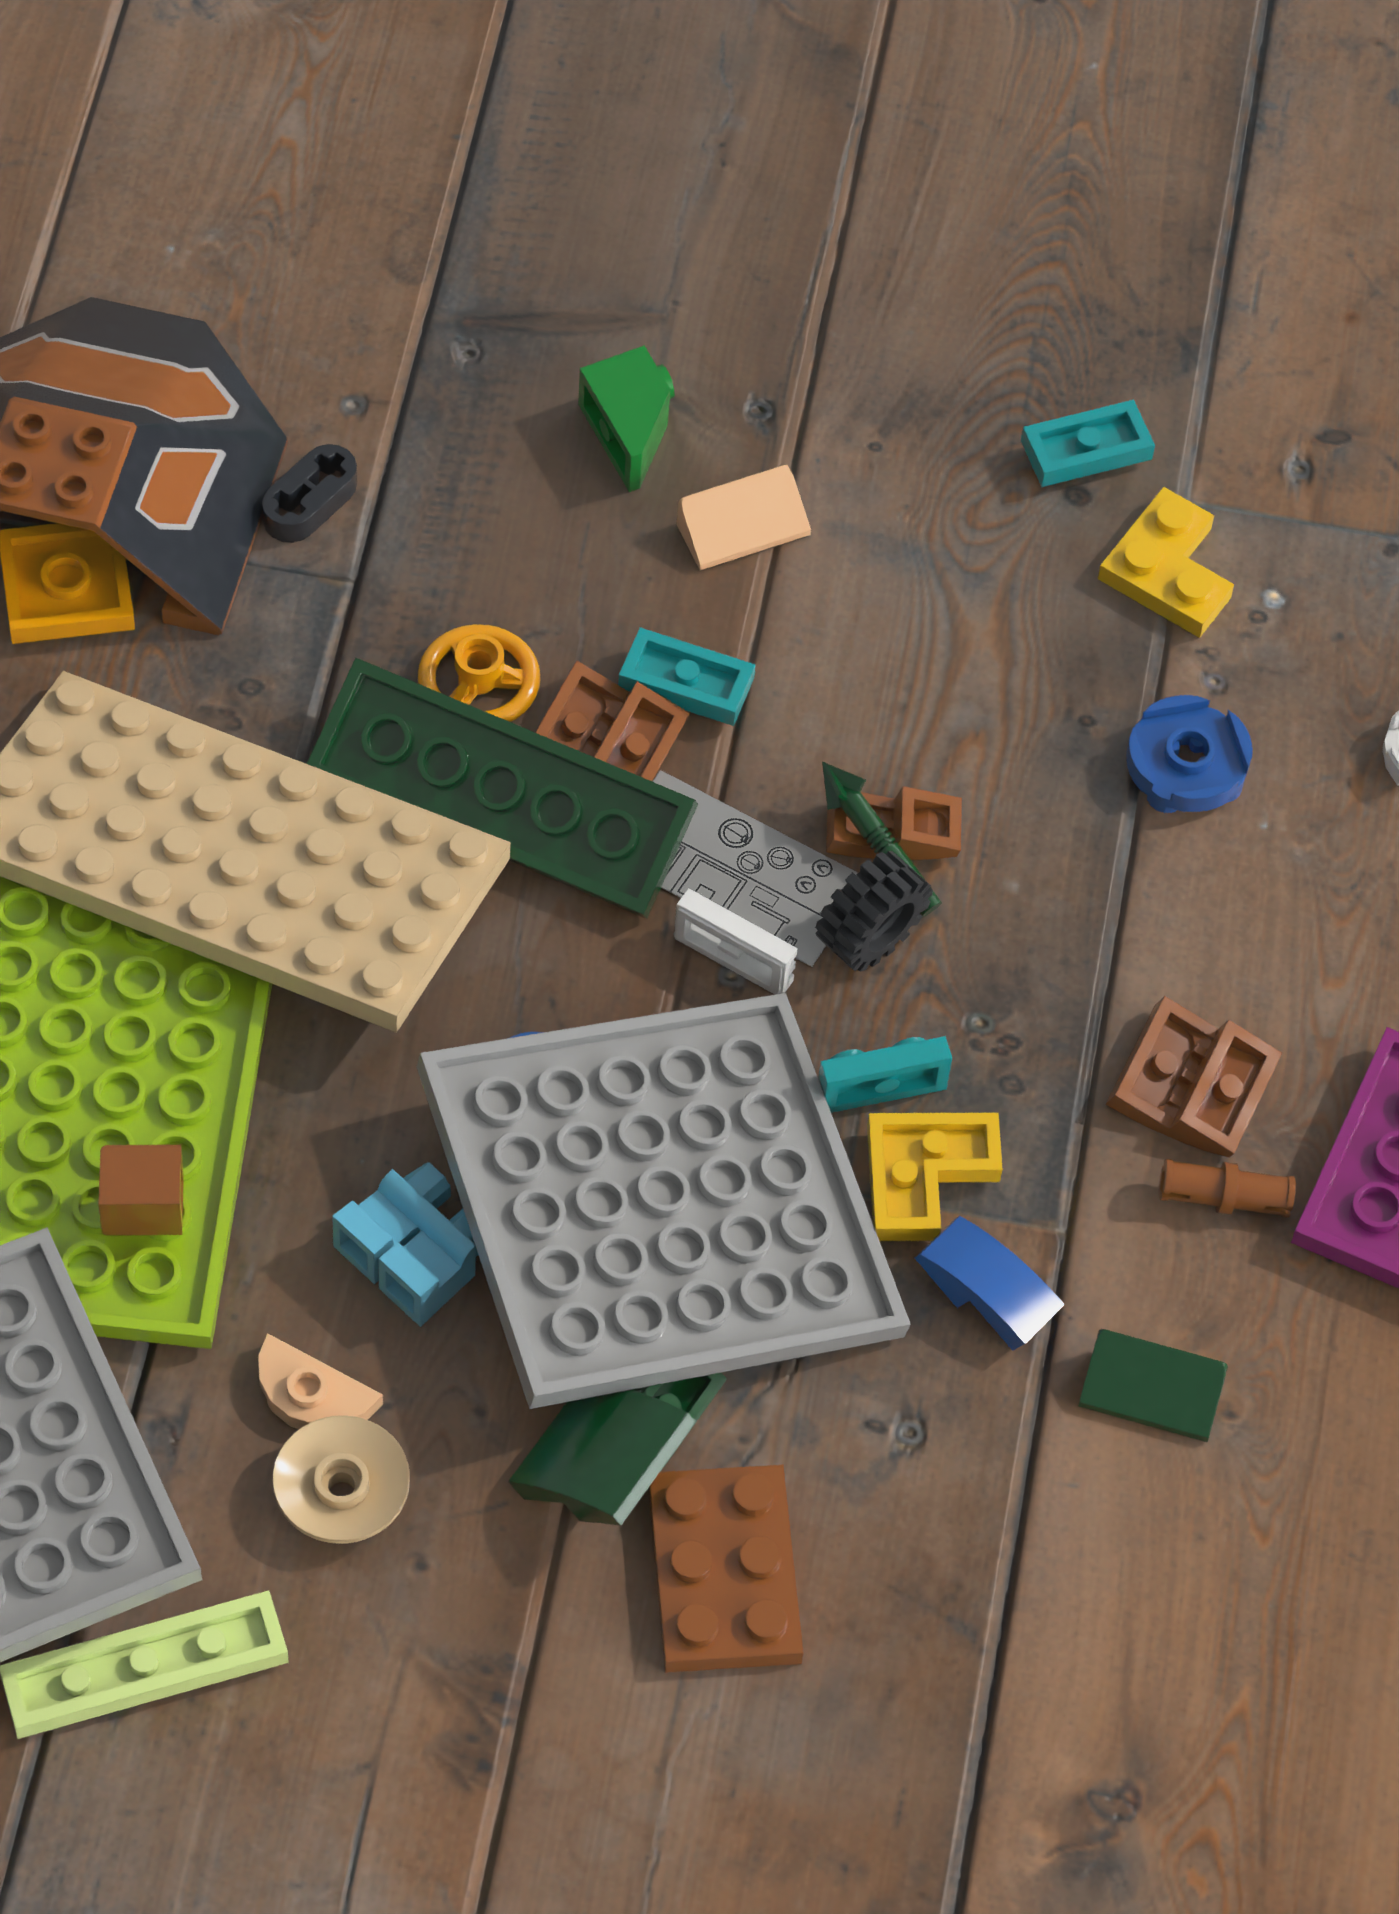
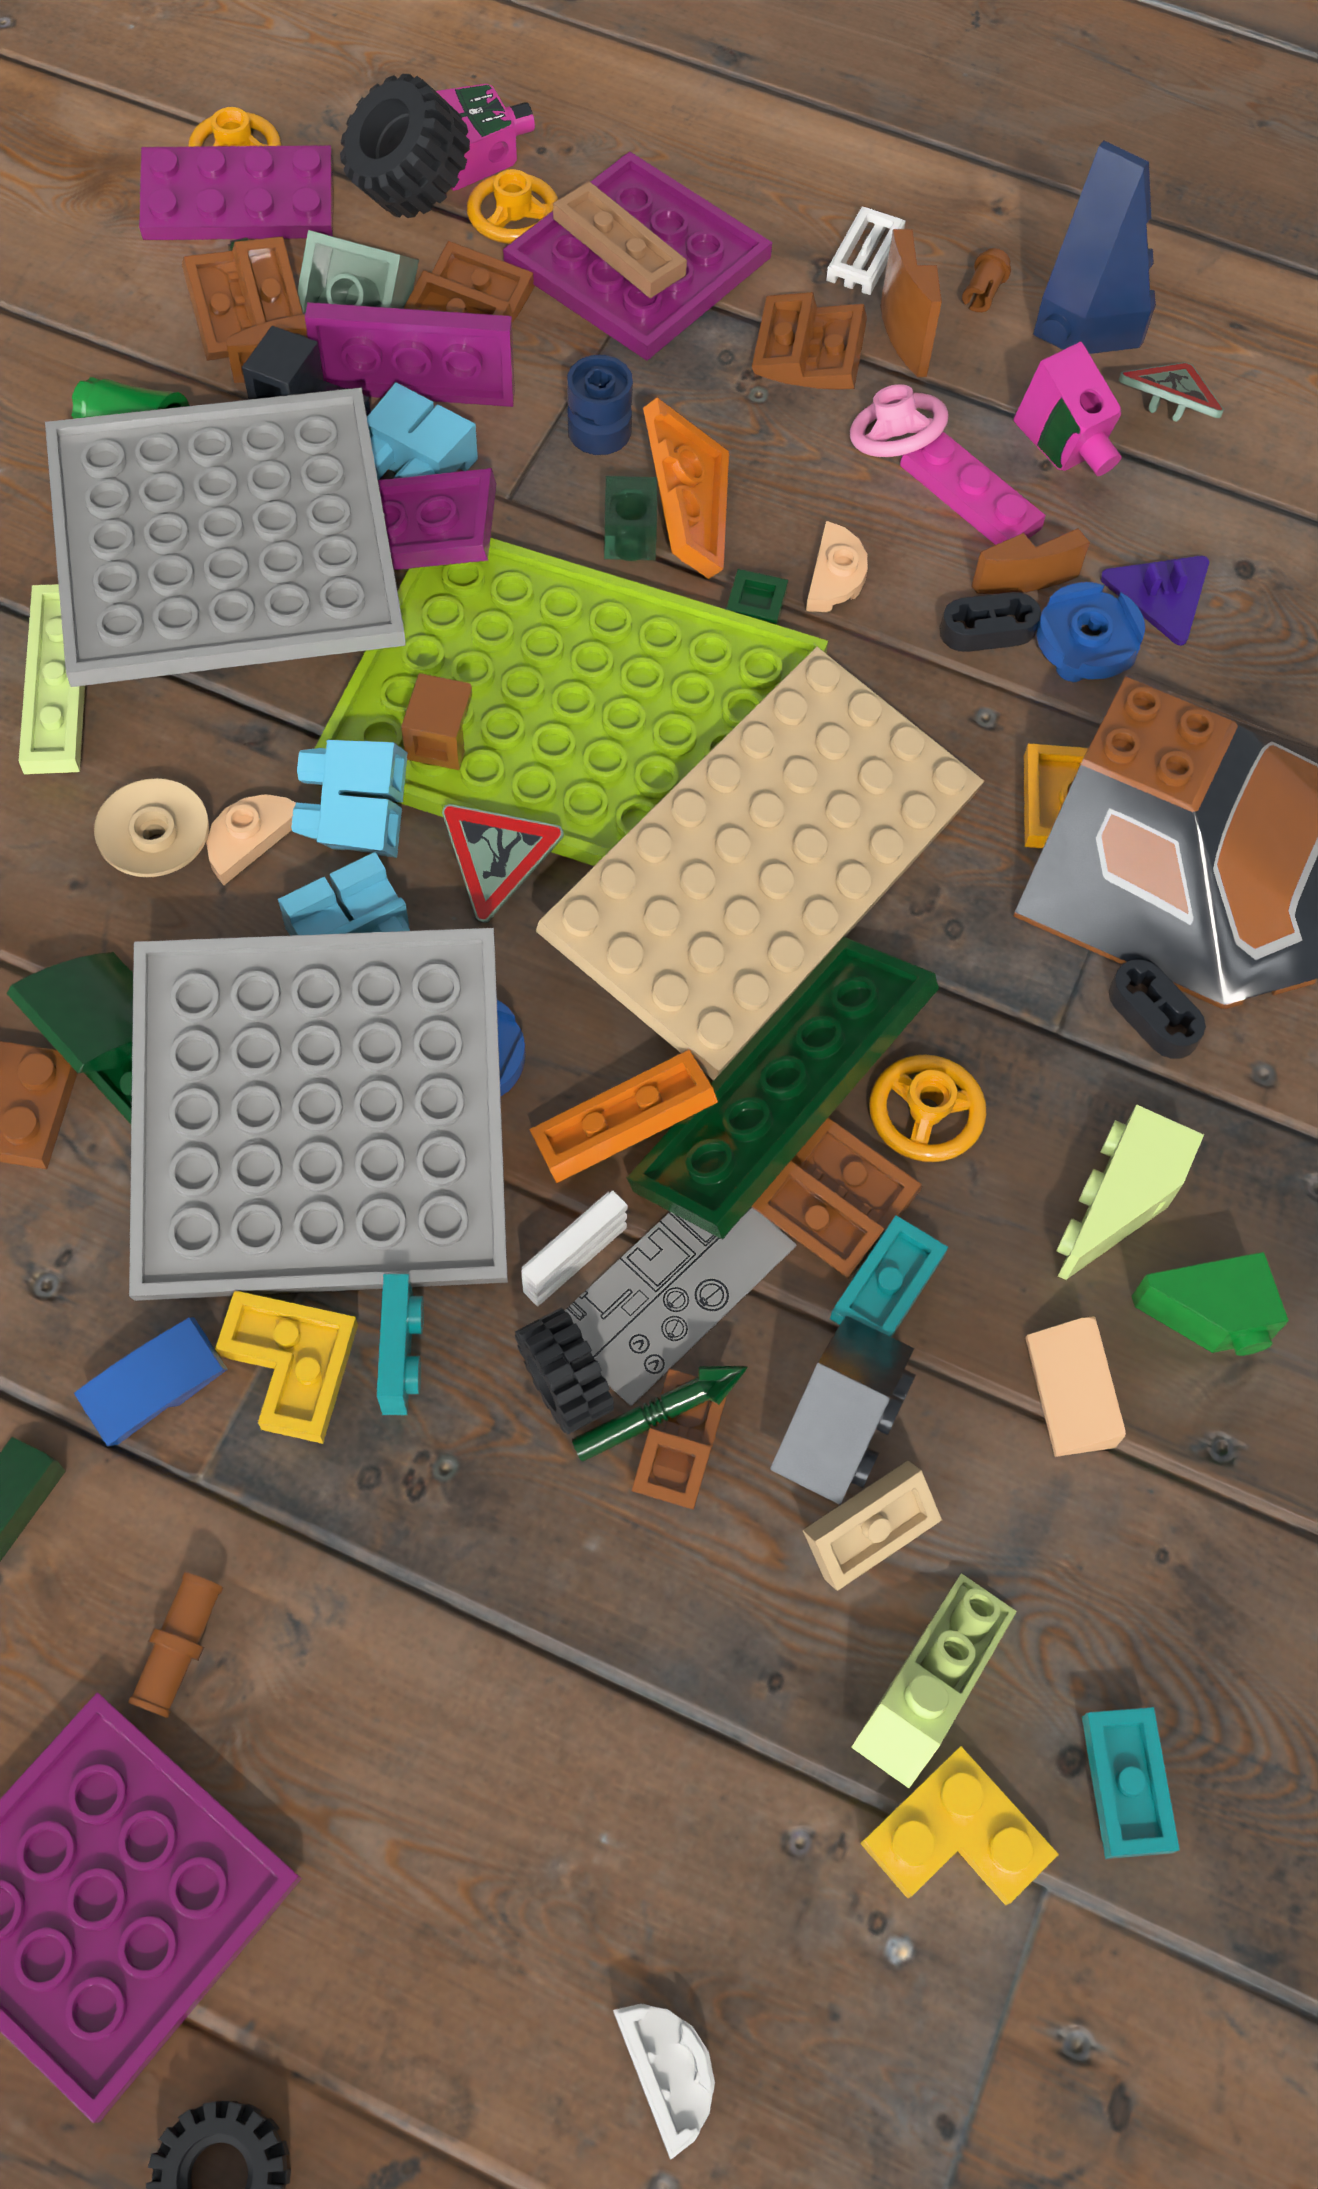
camera: 105 degrees right, 5 degrees up
(260, 1257) = (350, 771): none -> medium azure hips
(286, 1114) = (496, 853): none -> piece
(524, 487) = (1139, 1182): none -> yellowish green slope
(580, 924) = (623, 1115): none -> orange plate
(836, 671) = (848, 1398): none -> brick
(915, 643) = (872, 1525): none -> tan plate
(1057, 589) = (934, 1681): none -> yellowish green slope
(1180, 784) = (725, 1801): blue plate -> none
(1194, 1079) = (313, 1656): dark orange slope -> none

